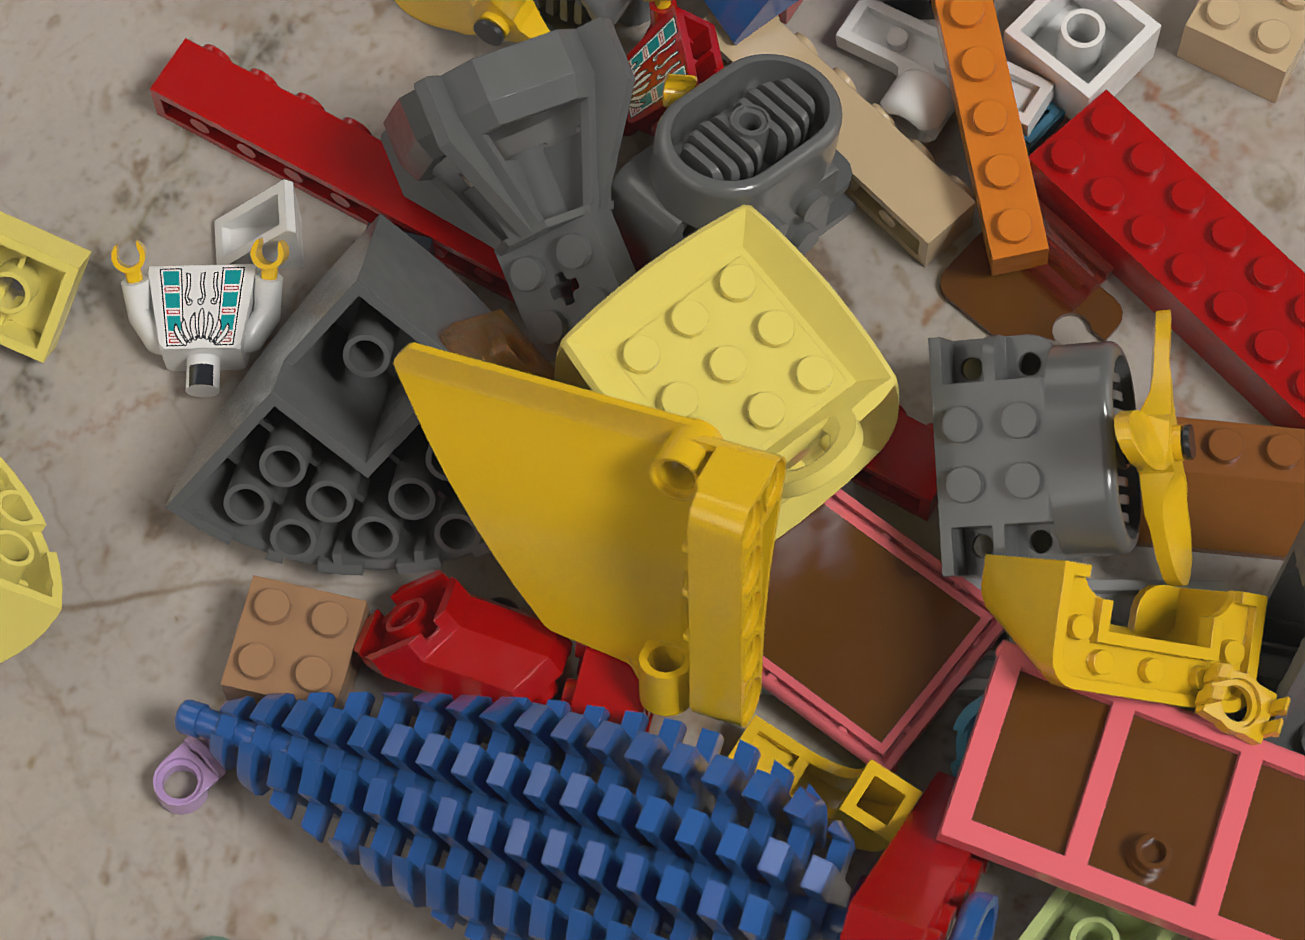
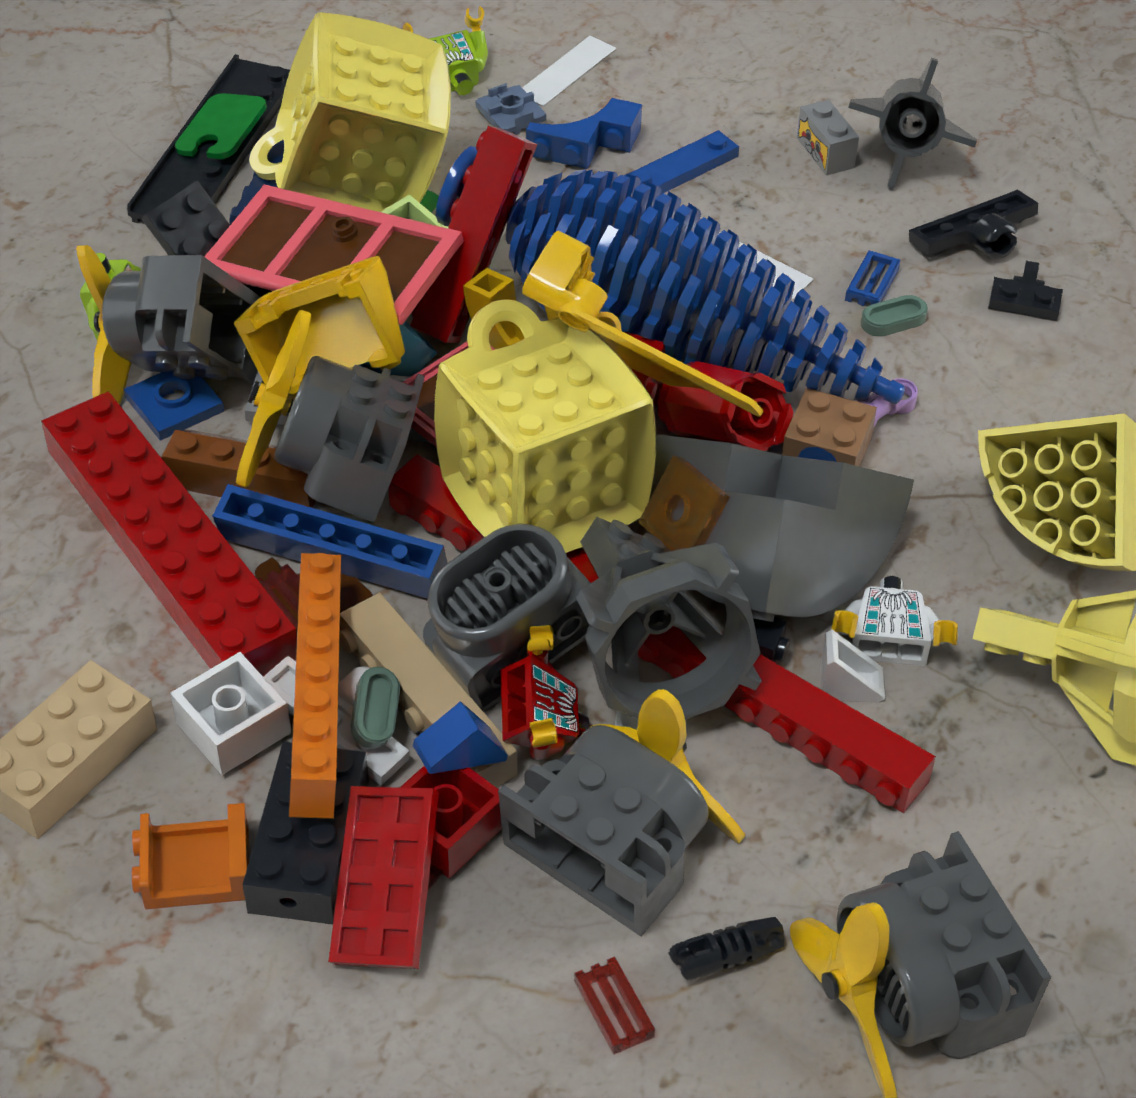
camera: 175 degrees left, 20 degrees down
(890, 58) = (375, 707): none -> sand green tile
(909, 303) = (295, 529): none -> blue brick
(1260, 704) = (257, 288): yellow piece -> none

